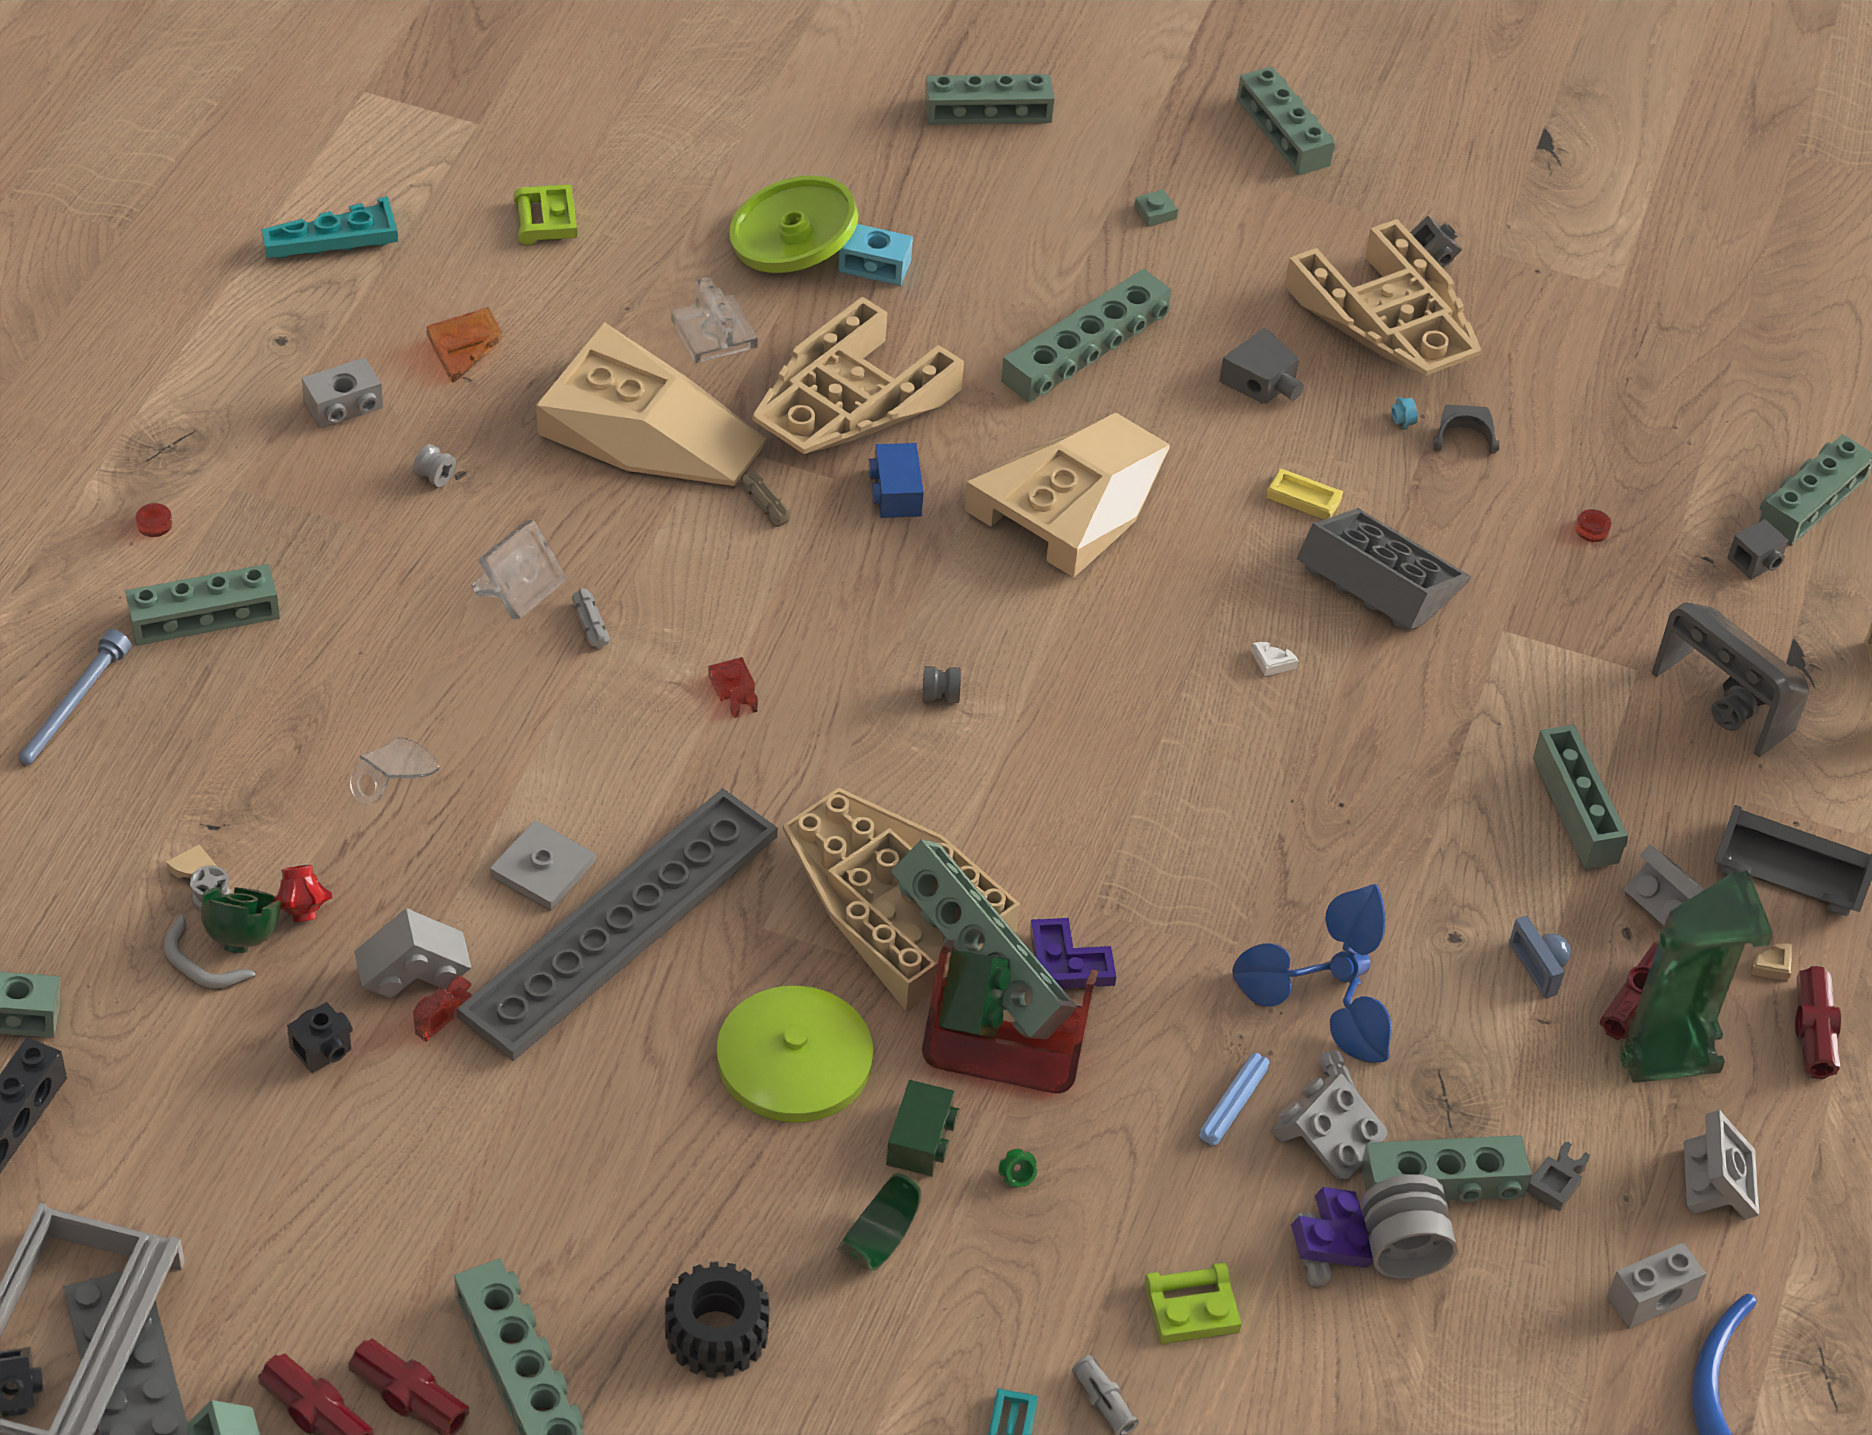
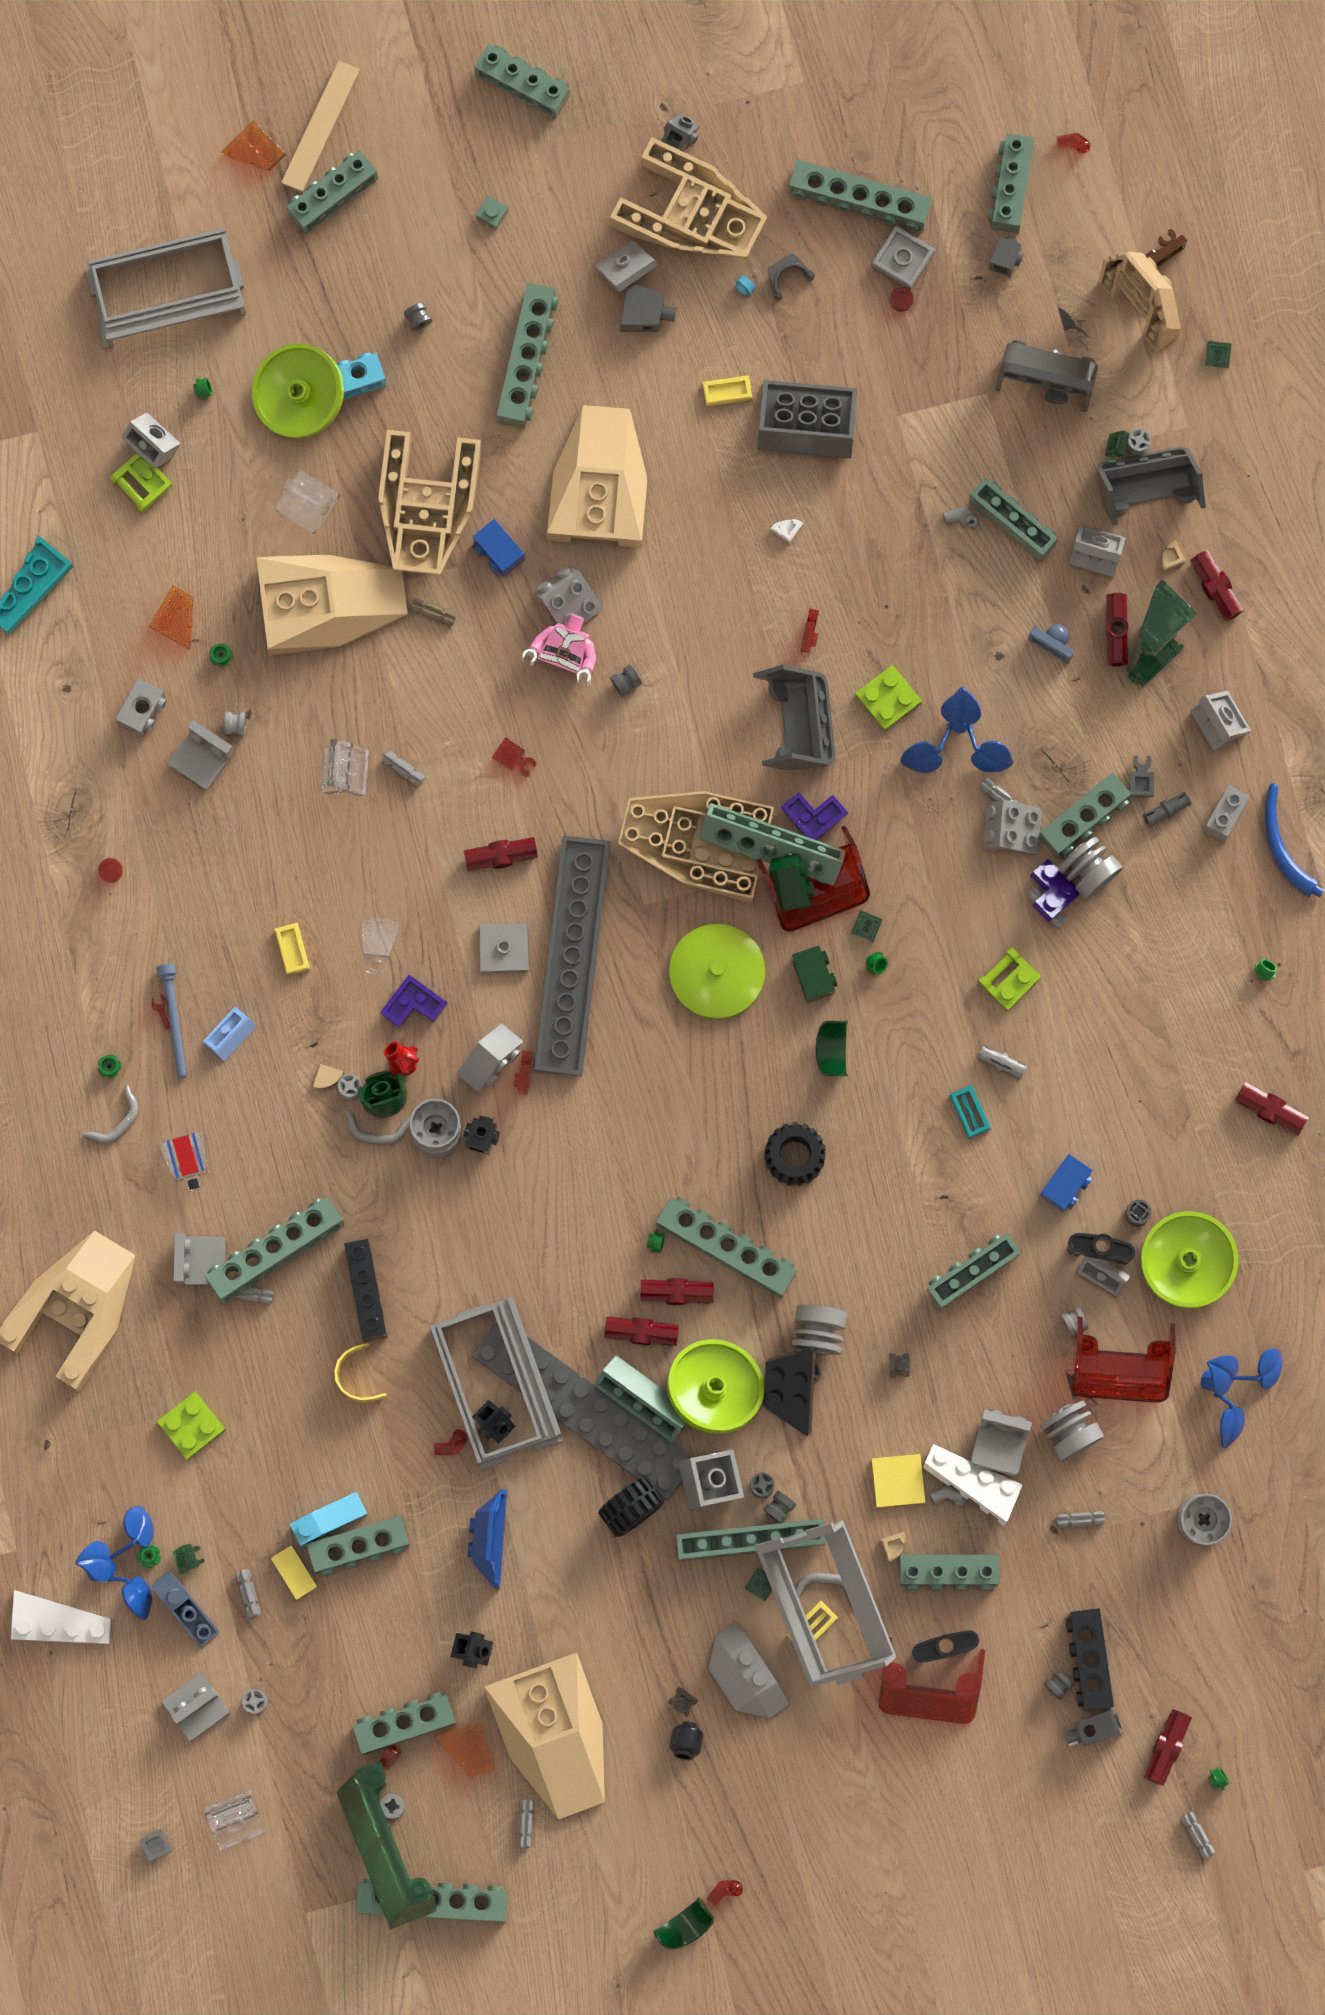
camera: 30 degrees left, 30 degrees up
(69, 678) = (161, 1010): none -> clear red hand
(123, 754) = (229, 1034): none -> light blue slope
(202, 604) = (190, 911): sand green brick -> none
(267, 986) = (436, 1114): none -> light grey wheel
(284, 714) = (292, 949): none -> light yellow tile
(368, 473) = (201, 756): none -> light grey bracket
(374, 841) = (413, 996): none -> dark purple plate
(435, 1310) = (656, 1241): none -> green plate
(481, 400) = (216, 650): none -> green plate
(589, 180) = (150, 440): none -> light grey brick
(628, 765) = (500, 854): none -> dark red piece
(691, 176) = (203, 388): none -> green plate
(744, 46) = (173, 312): none -> light grey piece
(890, 604) = (565, 648): none -> torso
(935, 28) = (254, 148): none -> clear orange wing
(940, 573) = (568, 595): none -> light grey bracket
(990, 241) = (418, 316): none -> dark grey wheel
(1032, 47) = (320, 127): none -> tan tile
(1040, 1123) = (867, 926): none -> clear green tile
(1147, 848) = (805, 716): none -> dark grey windscreen
(1214, 768) = (810, 637): none -> clear red plate
(1234, 1099) = (953, 843): light blue axle -> none
(1269, 894) = (888, 697): none -> lime plate
(1273, 317) = (626, 266): none -> light grey plate
(1514, 764) = (962, 515): none -> light grey arm
(1570, 1233) = (1166, 809): none -> dark grey pin
(1614, 405) = (852, 185): none -> sand green brick
(1624, 487) = (903, 257): none -> light grey plate
(1778, 800) = (1117, 444): none -> clear green tile
(1811, 814) = (1139, 437): none -> light grey wheel

